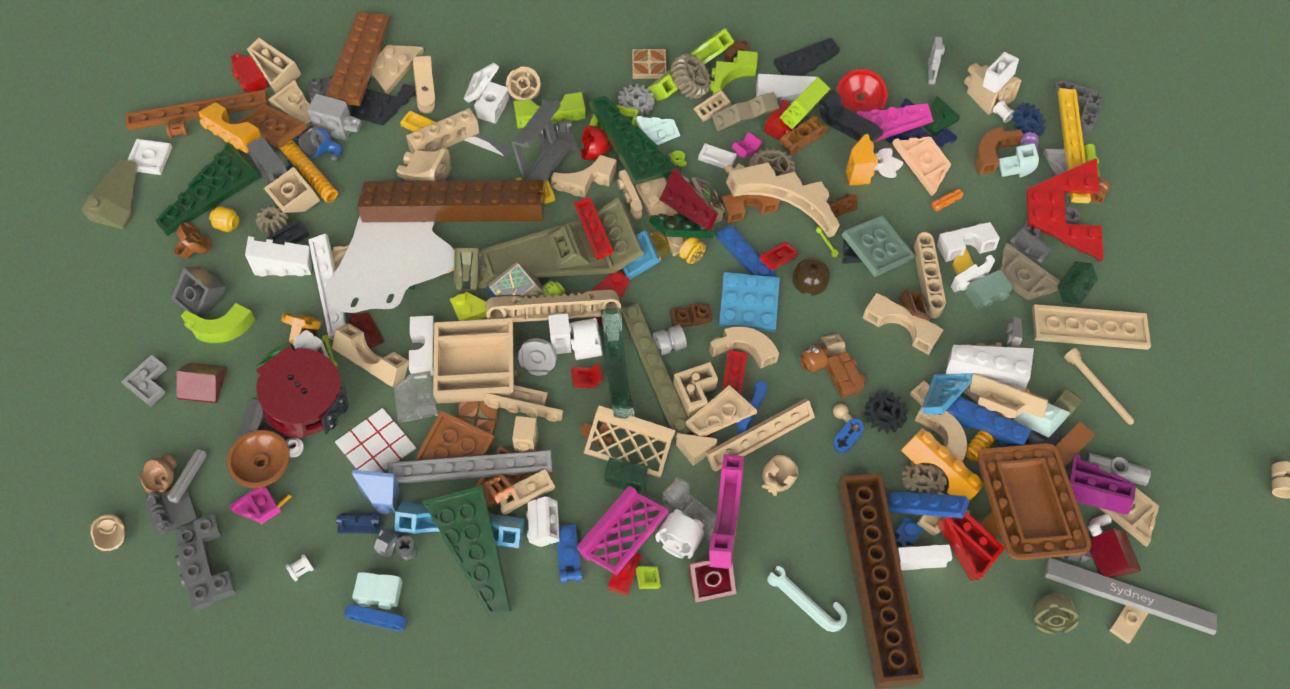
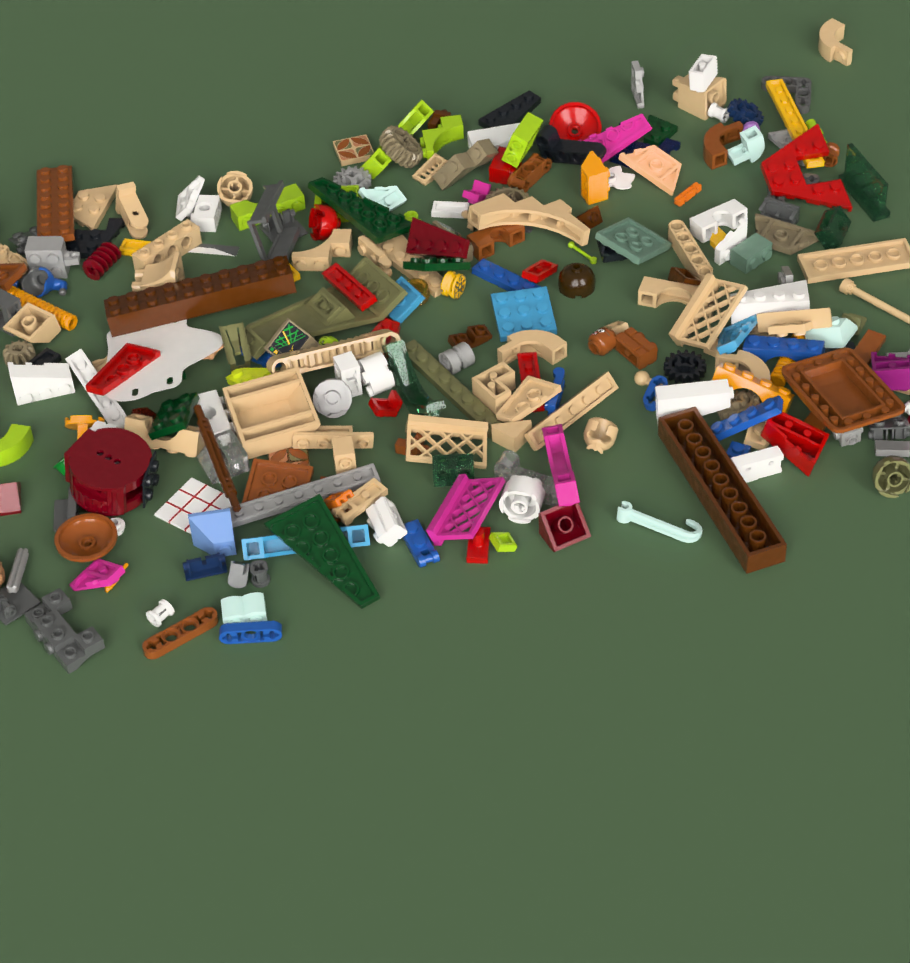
camera: 10 degrees left, 15 degrees down
(312, 598) = (178, 630): none -> dark orange beam
(356, 265) = (122, 366): none -> red wing
(379, 130) = (101, 260): none -> dark red piece
(382, 339) = (173, 415): none -> dark green plate
(405, 403) = (217, 458): none -> reddish brown axle
(890, 463) = (705, 395): none -> white slope
(911, 352) = (698, 308): none -> tan fence
(1123, 248) = (864, 184): none -> clear green fence
(1131, 57) = (829, 44): none -> tan arch

